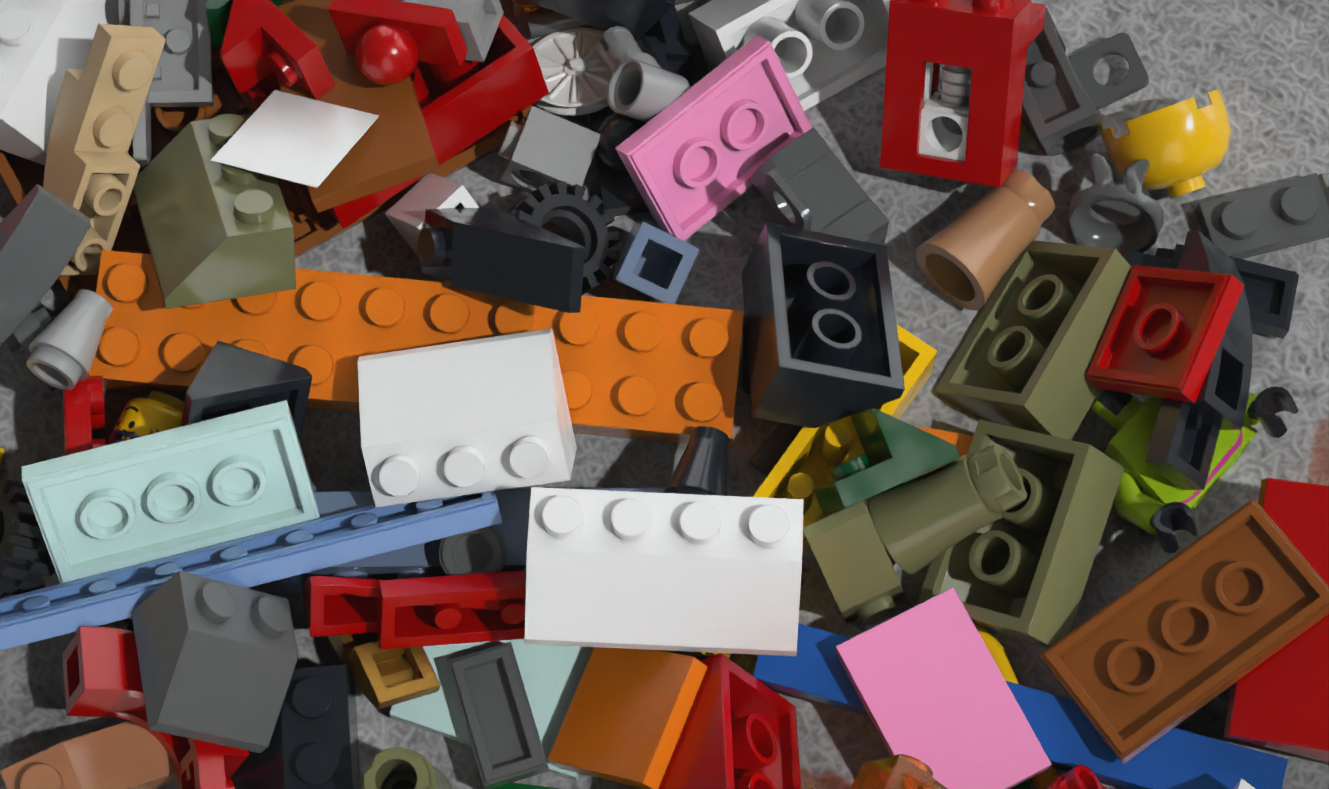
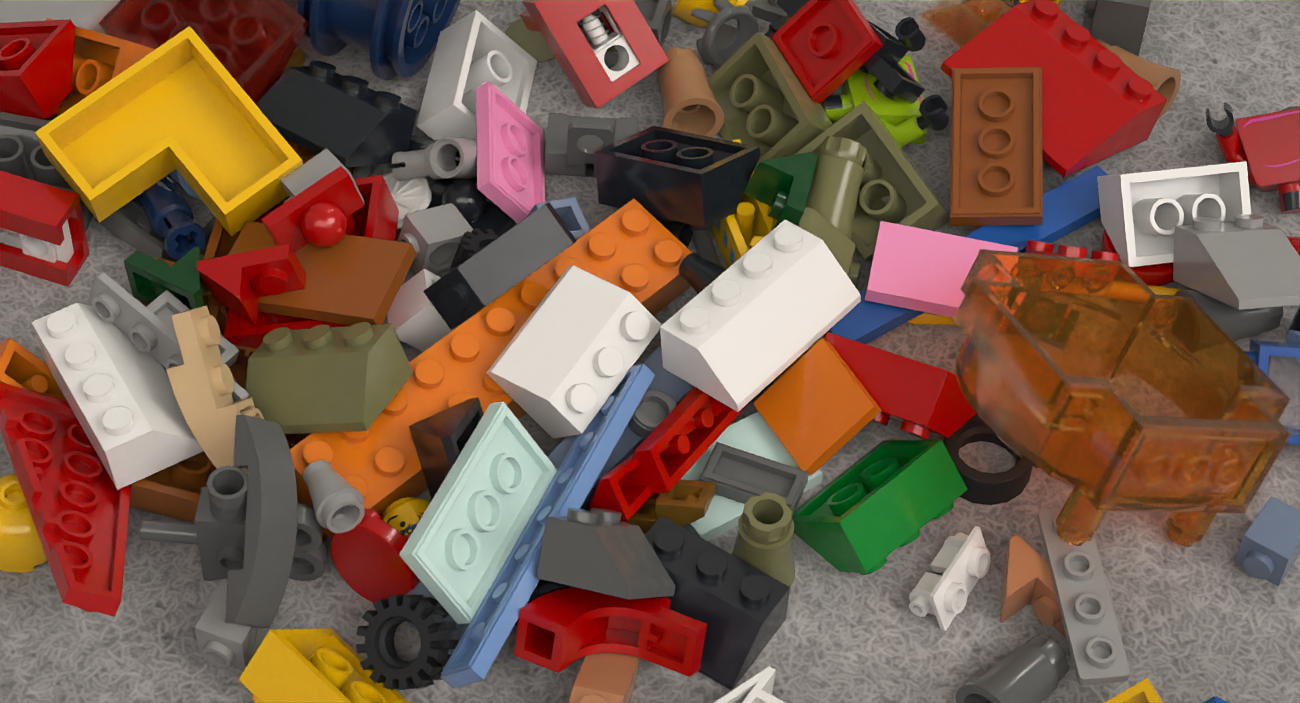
camera: 55 degrees left, 20 degrees down
(295, 138) = (327, 301): white sticker -> none

